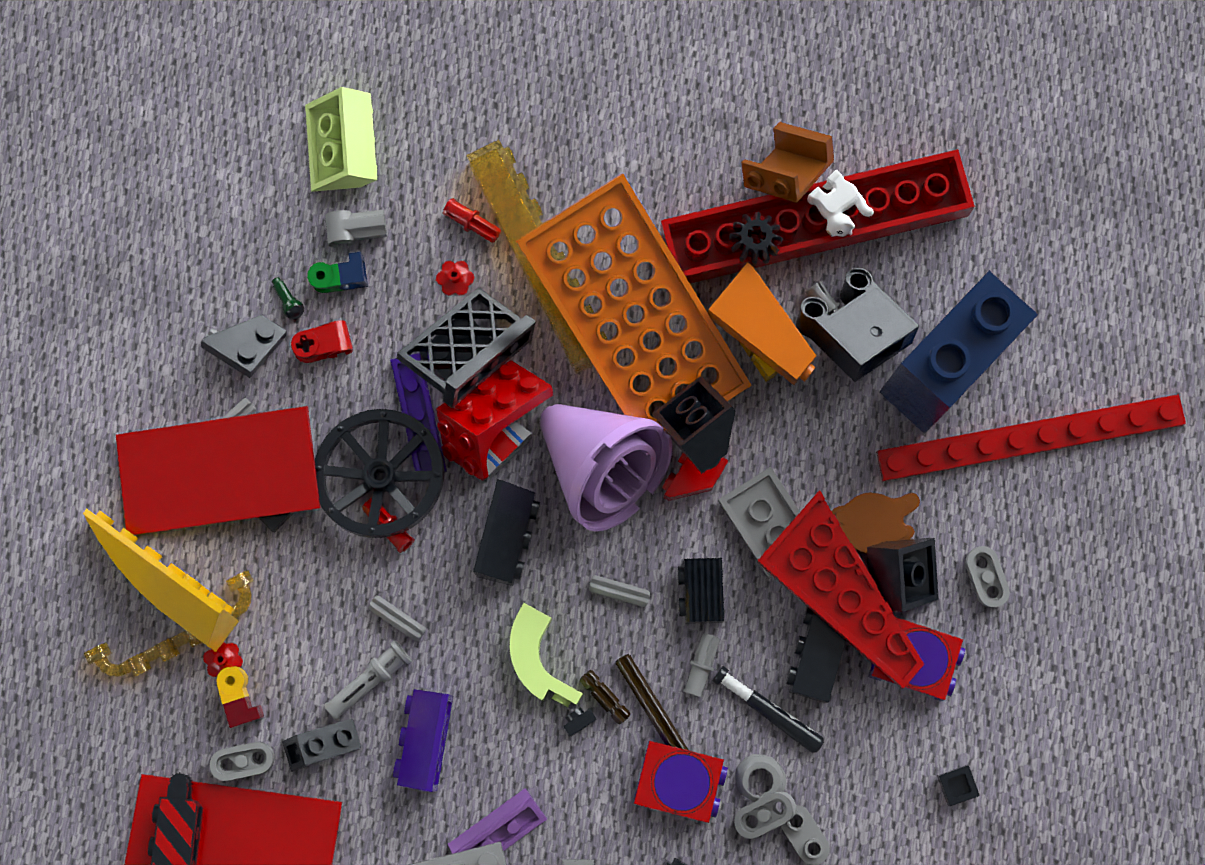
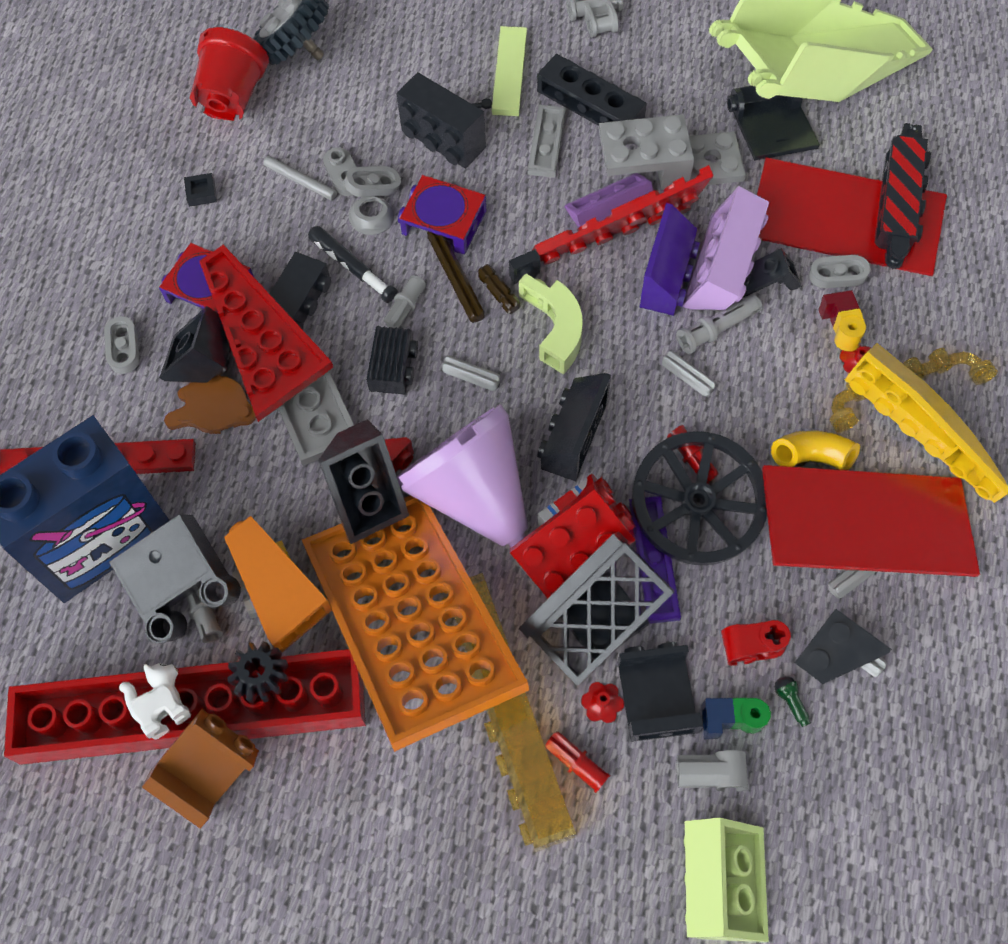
camera: 170 degrees left, 15 degrees down
(270, 545) = (817, 447): none -> yellow cylinder
(363, 760) = (727, 252): none -> lavender slope
(405, 286) = (657, 692): none -> black panel
(448, 804) = (626, 217): none -> red wing
(851, 820) = (300, 178): none -> light grey bar

